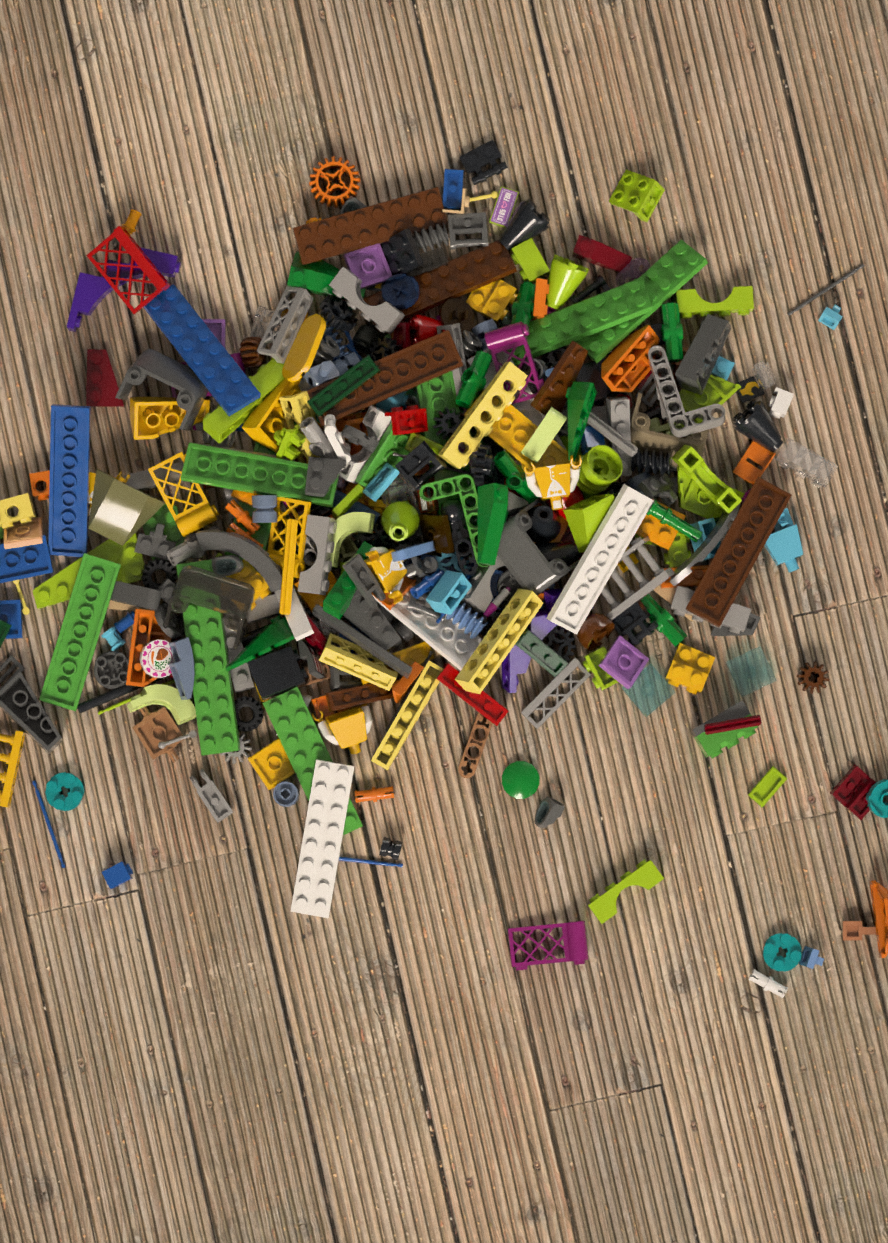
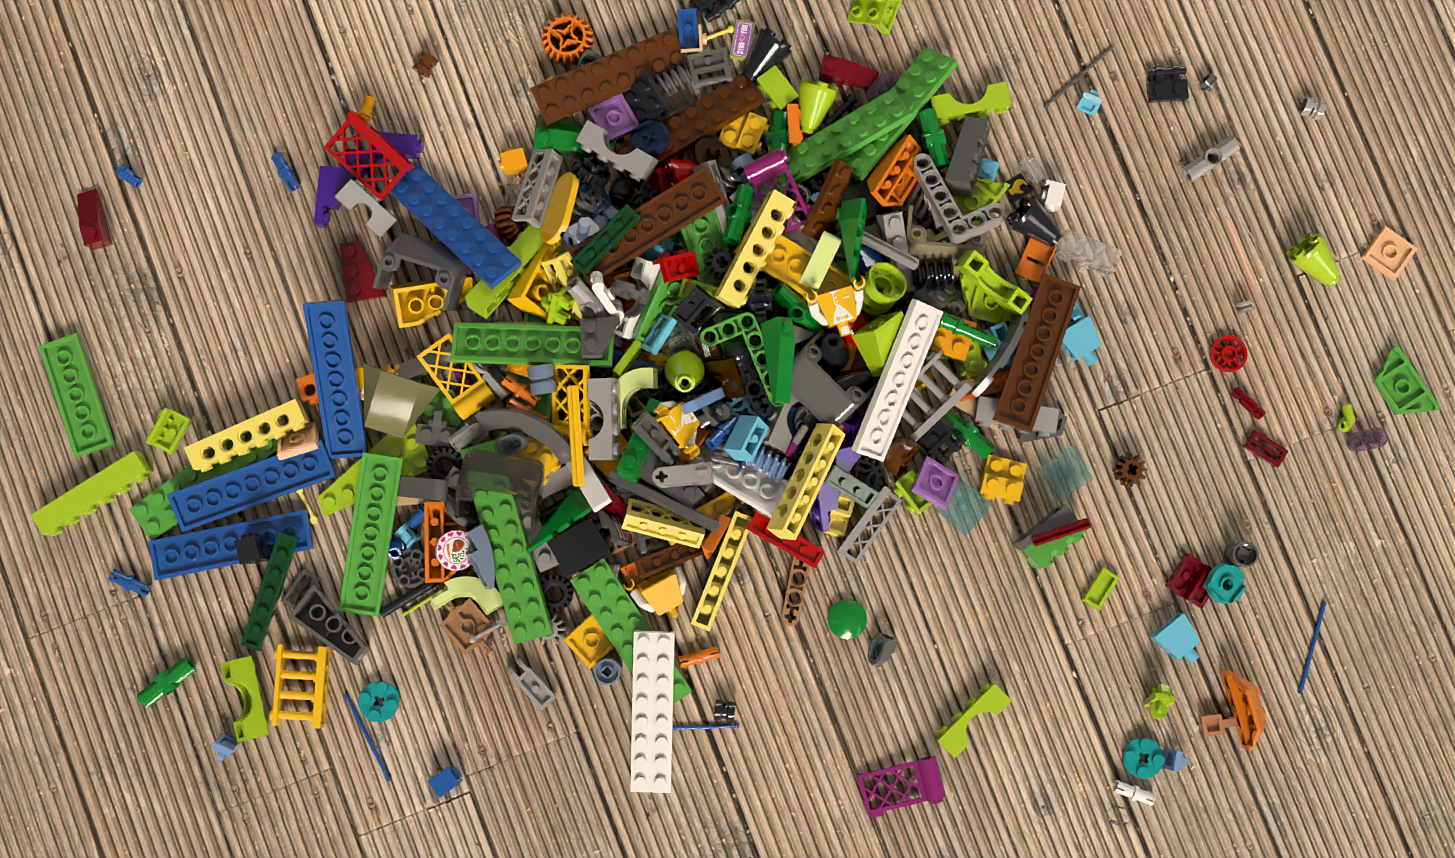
camera: 15 degrees left, 0 degrees up
(44, 272) = (285, 172): none -> blue pin
(101, 649) = (395, 548): none -> blue pin
(130, 331) = (380, 218): none -> light grey arch
(185, 493) = (460, 375): none -> magenta arm
(192, 189) = (425, 64): none -> reddish brown wheel
(219, 501) = (494, 378): none -> light grey hinge
(265, 294) = (513, 161): none -> light orange brick
(386, 618) = (685, 475): none -> light grey piece
(529, 681) = (840, 517): none -> light yellow slope
(804, 899) = (1159, 701): none -> lime hips
(832, 844) = (1177, 638): none -> medium azure torso

